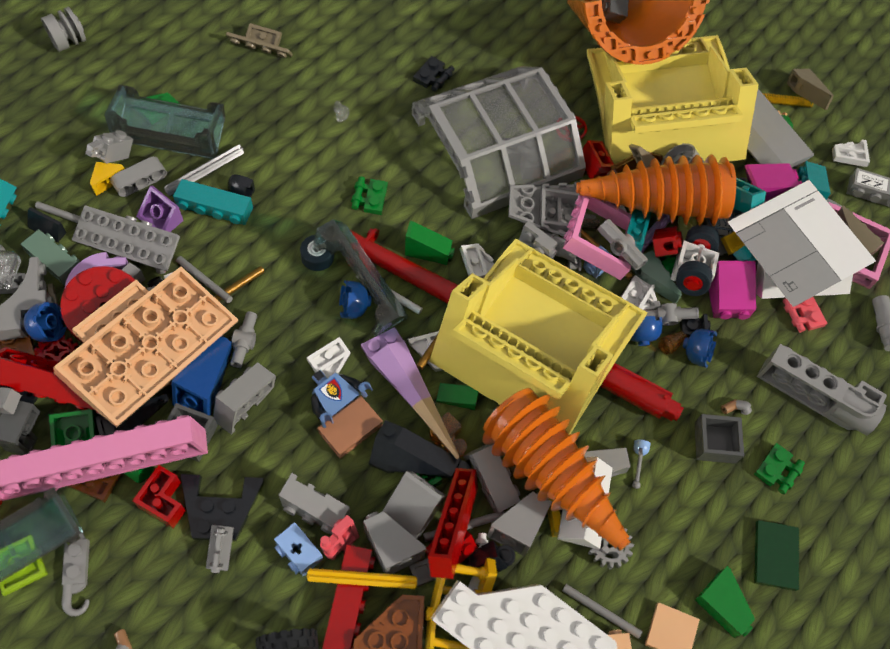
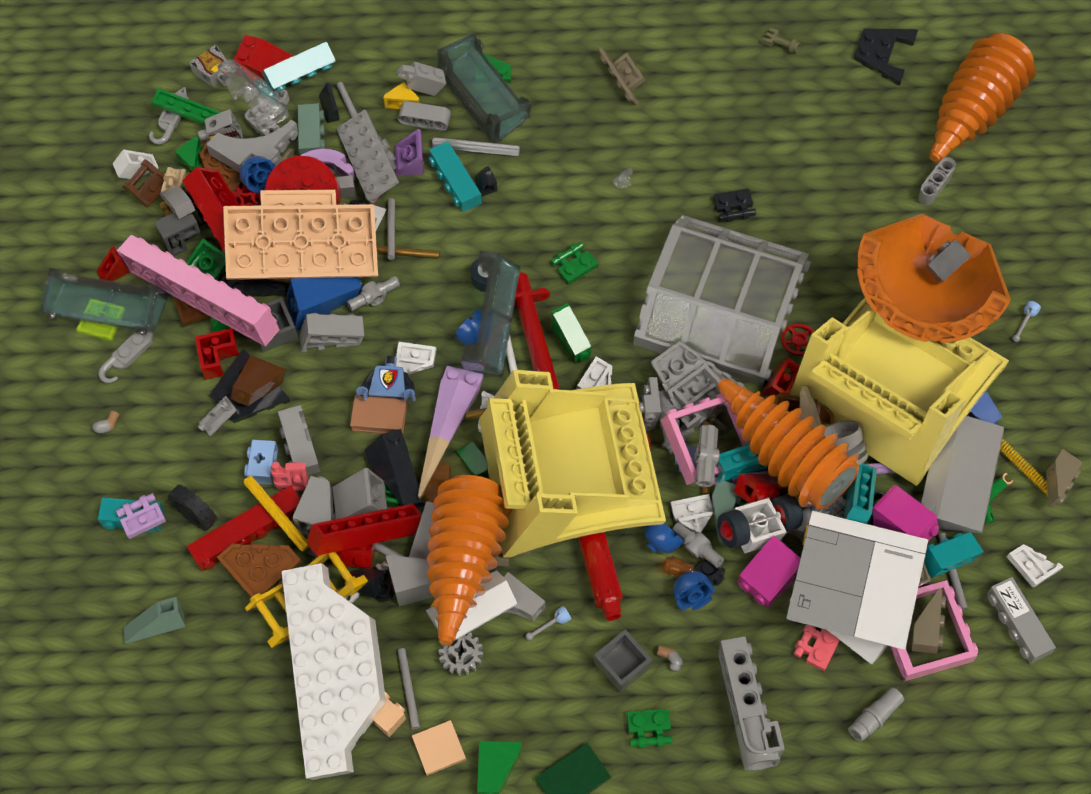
camera: 55 degrees right, 0 degrees up
(223, 489) = (256, 380): none -> reddish brown slope

